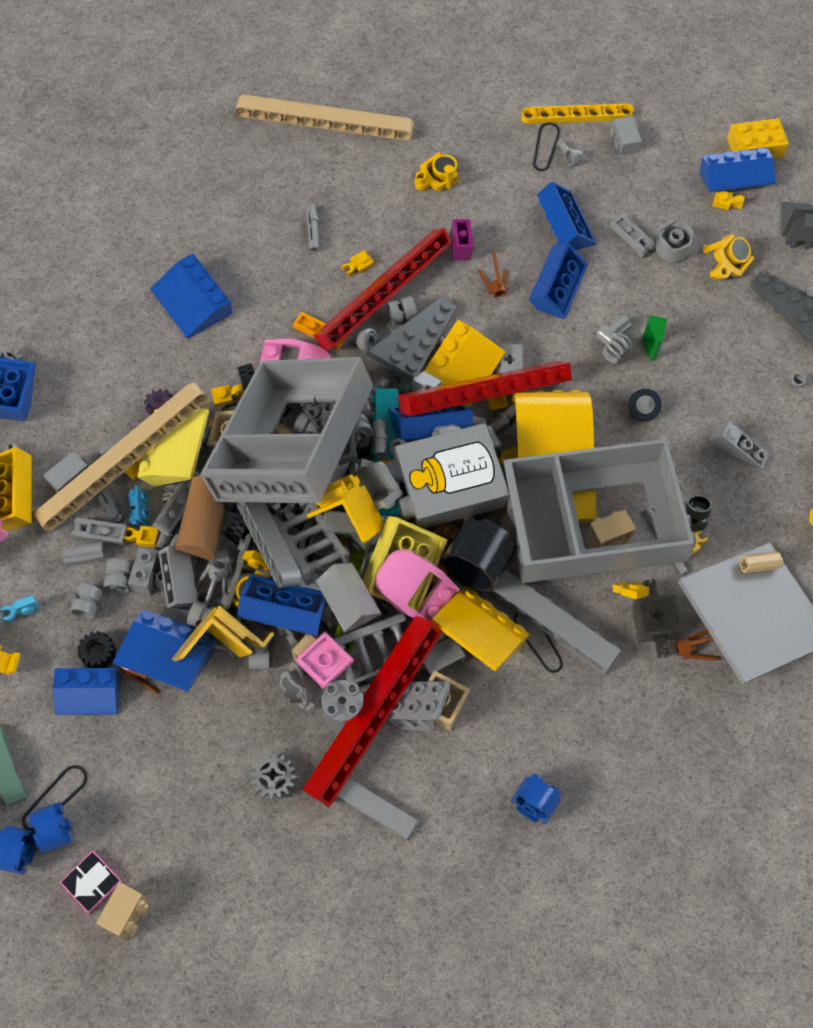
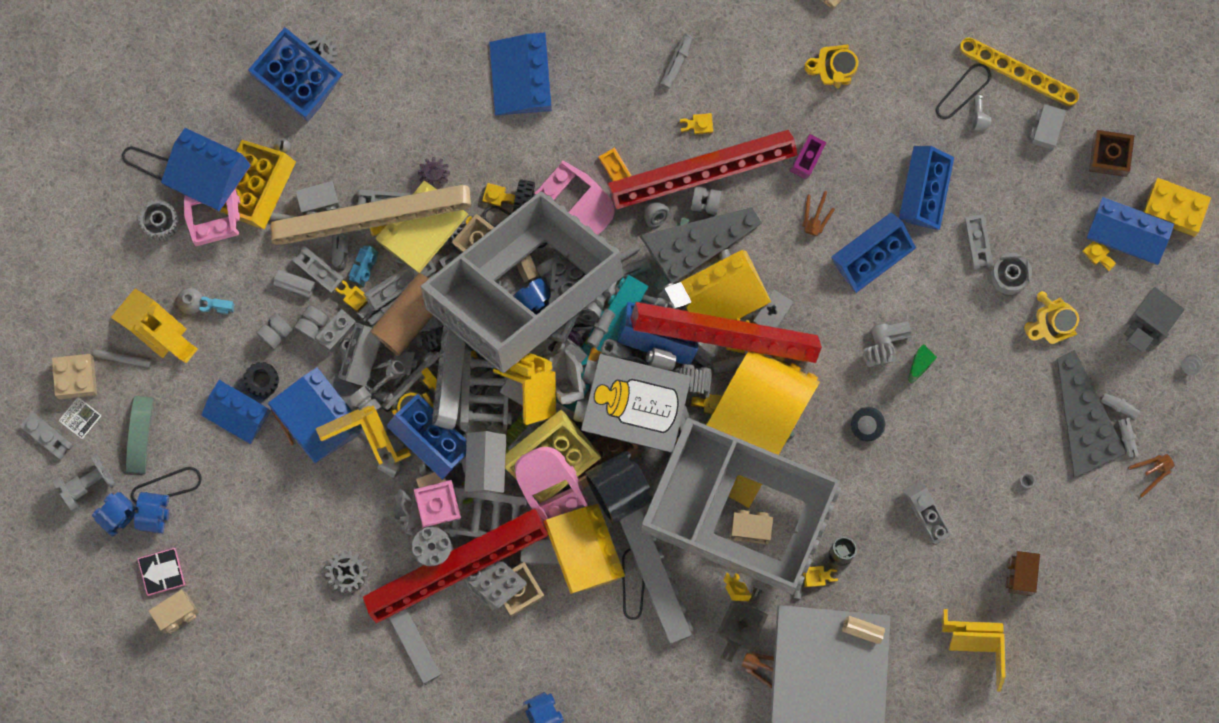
camera: 30 degrees right, 15 degrees up
(685, 128) = (1111, 153): none -> reddish brown brick

